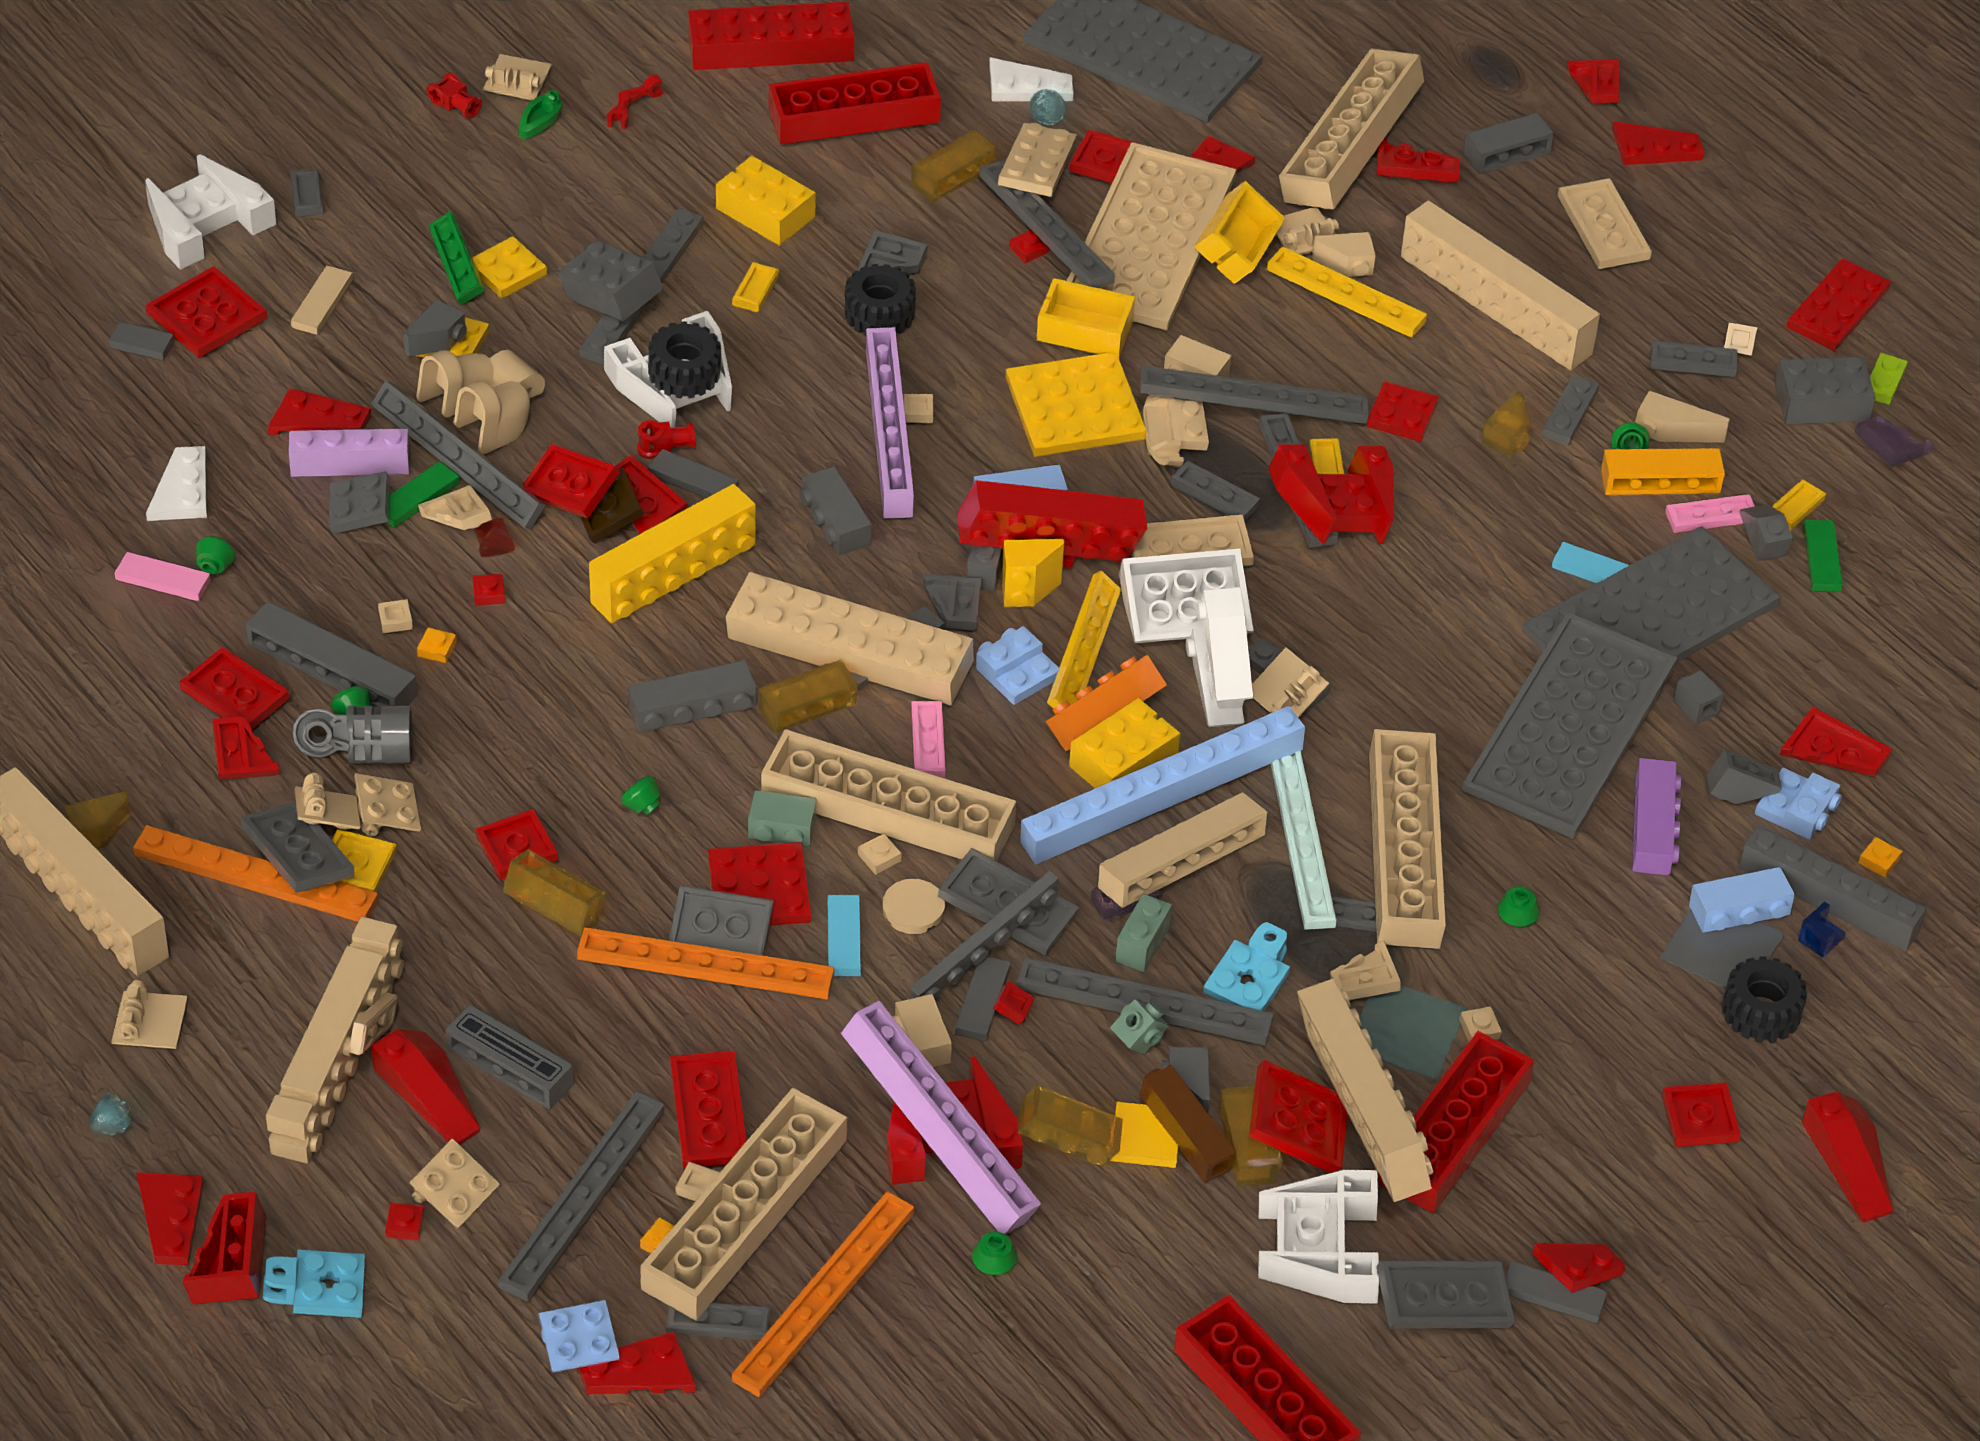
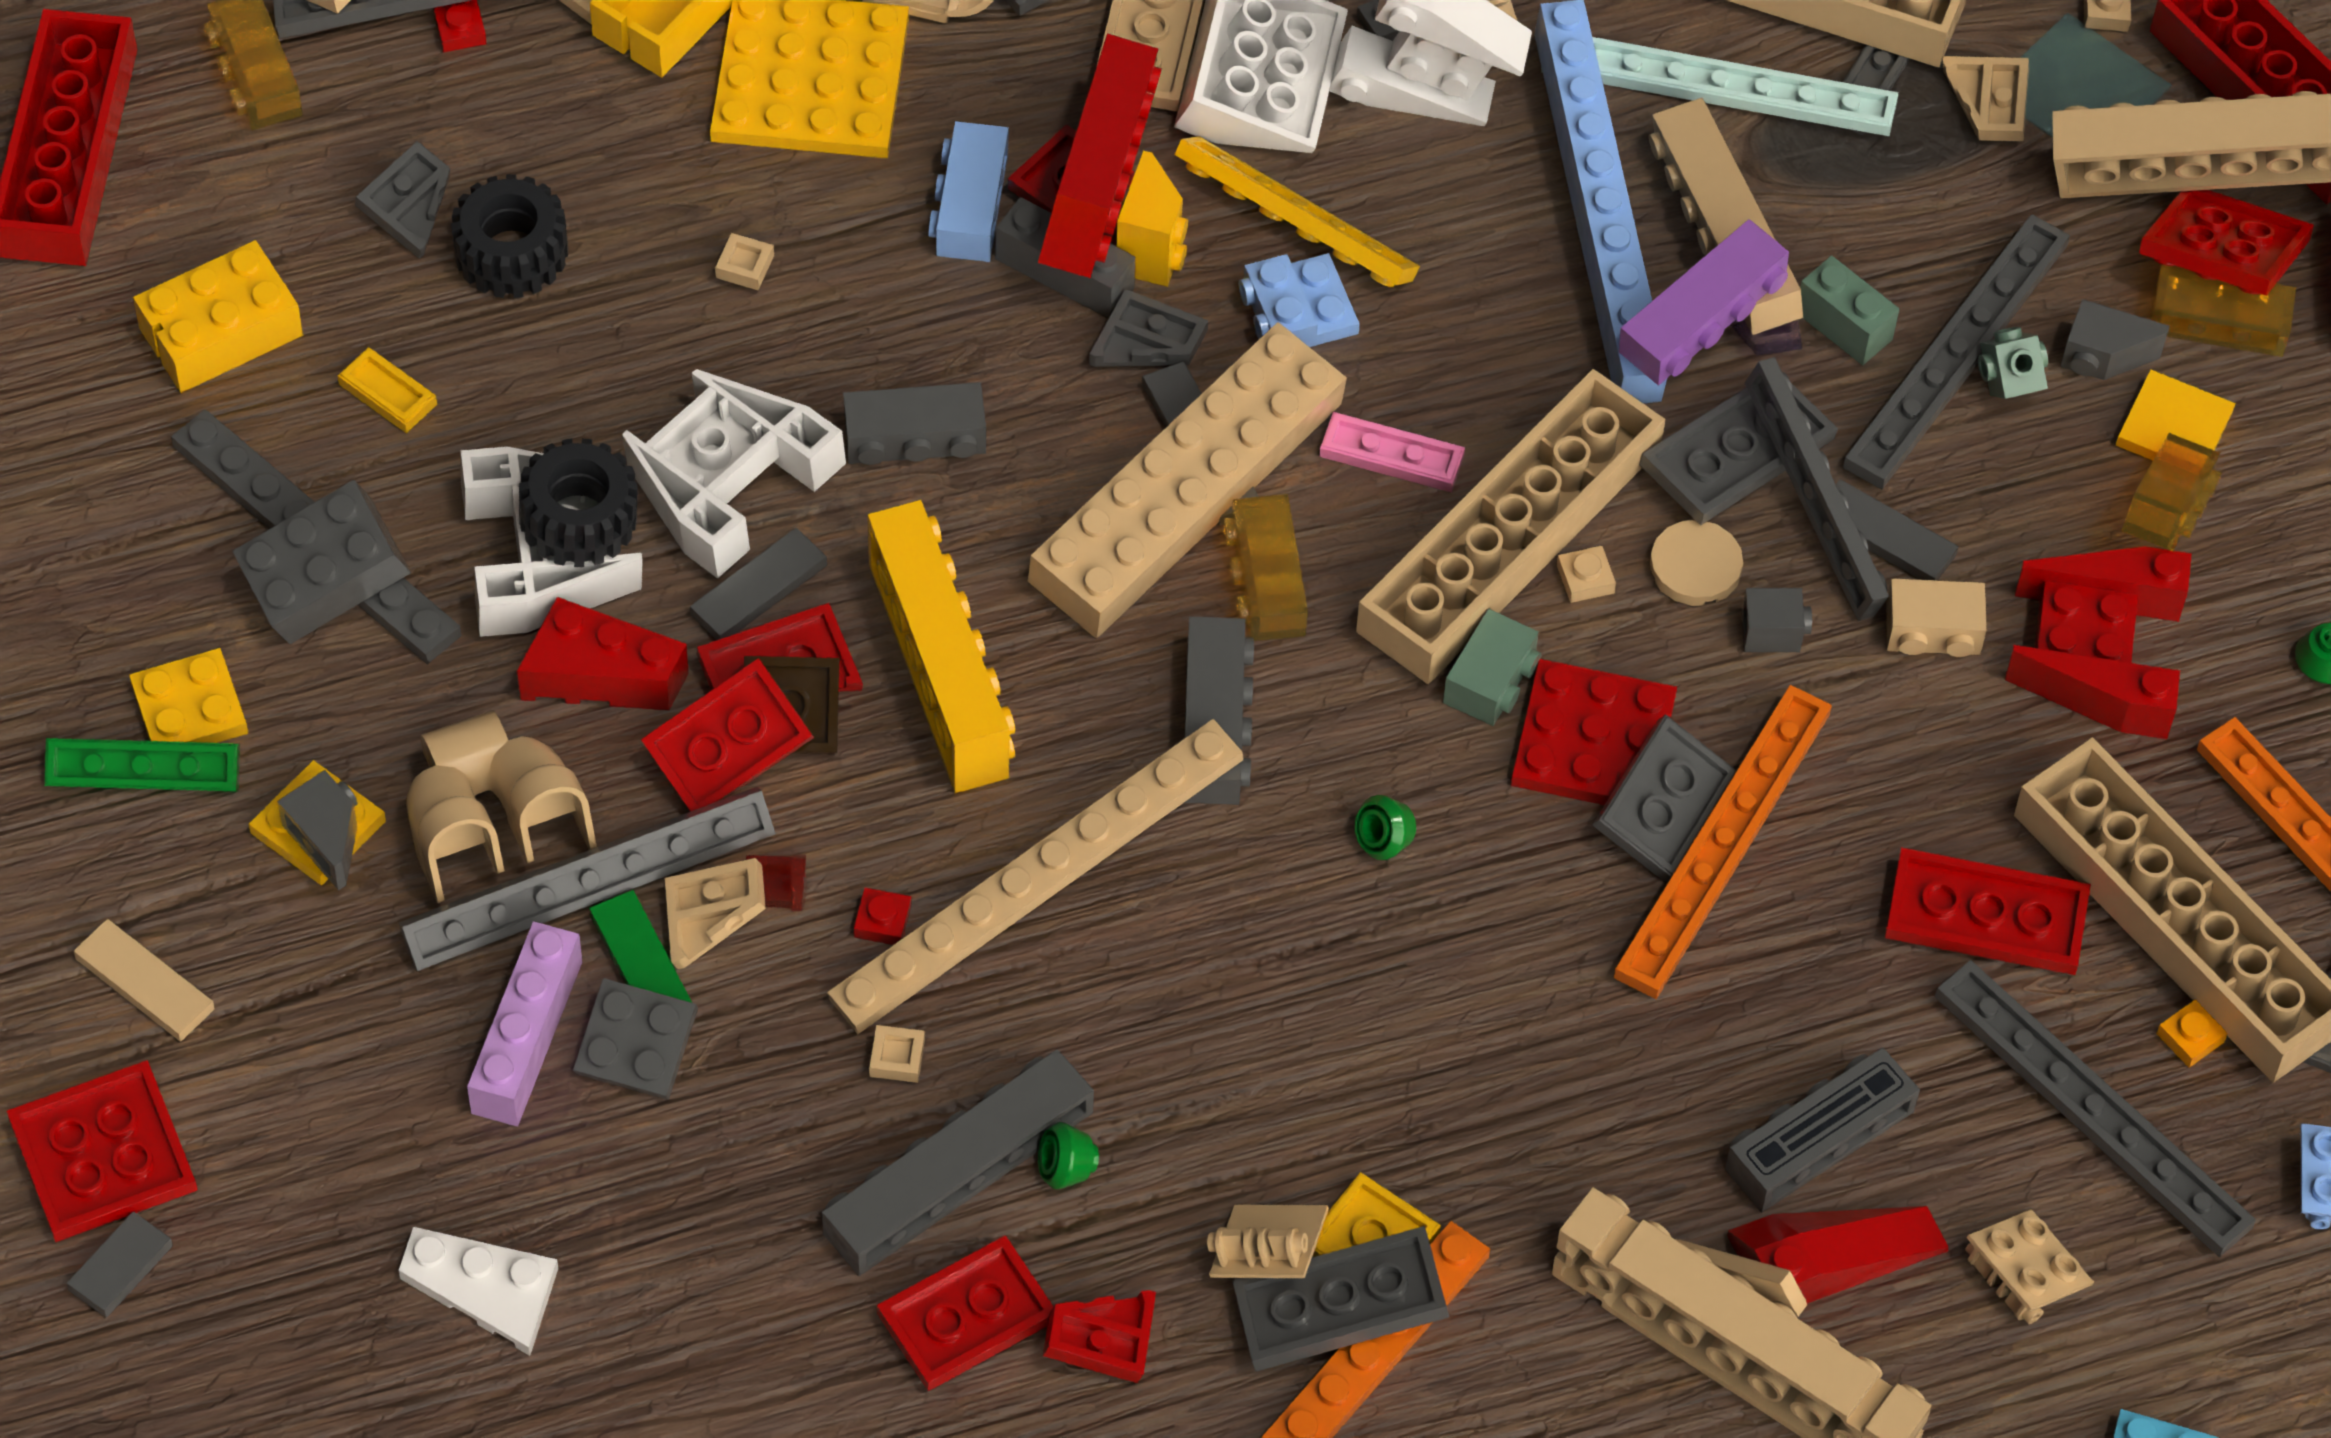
camera: 70 degrees left, 10 degrees up
(162, 576) = (673, 1359): bright pink tile -> none
(214, 554) = (672, 1270): green cone -> none
(315, 412) = (402, 1055): red wing -> none
(367, 733) = (1145, 1151): dark grey cylinder -> none
(386, 804) = (1278, 1163): tan hinge -> none
(404, 1221) = (2068, 1345): red plate -> none
(436, 645) = (971, 1016): light orange plate -> none
(513, 836) = (1419, 1014): red plate -> none
(538, 641) = (1035, 876): none -> tan plate
(553, 892) = (1545, 985): clear yellow brick -> none
(603, 415) = (601, 659): none -> red wedge
(663, 437) = (671, 596): red connector -> none
(695, 1181) = (2114, 961): tan plate -> none
(761, 423) = (717, 451): none -> white wedge
(844, 934) = (1721, 660): medium azure tile -> none
(881, 949) = (1774, 619): none -> dark grey brick
(889, 423) = (773, 300): lavender brick -> none
(940, 1118) = (2140, 624): lavender brick -> none
(1013, 1002) = (1916, 497): red plate -> none
(1083, 832) = (1704, 302): none -> medium lavender brick
(1123, 744) = (1512, 226): yellow piece -> none
(1136, 680) = (1424, 217): orange brick -> none
(1187, 1123) = (2193, 365): reddish brown brick -> none
(1260, 960) = (1929, 206): medium azure plate -> none

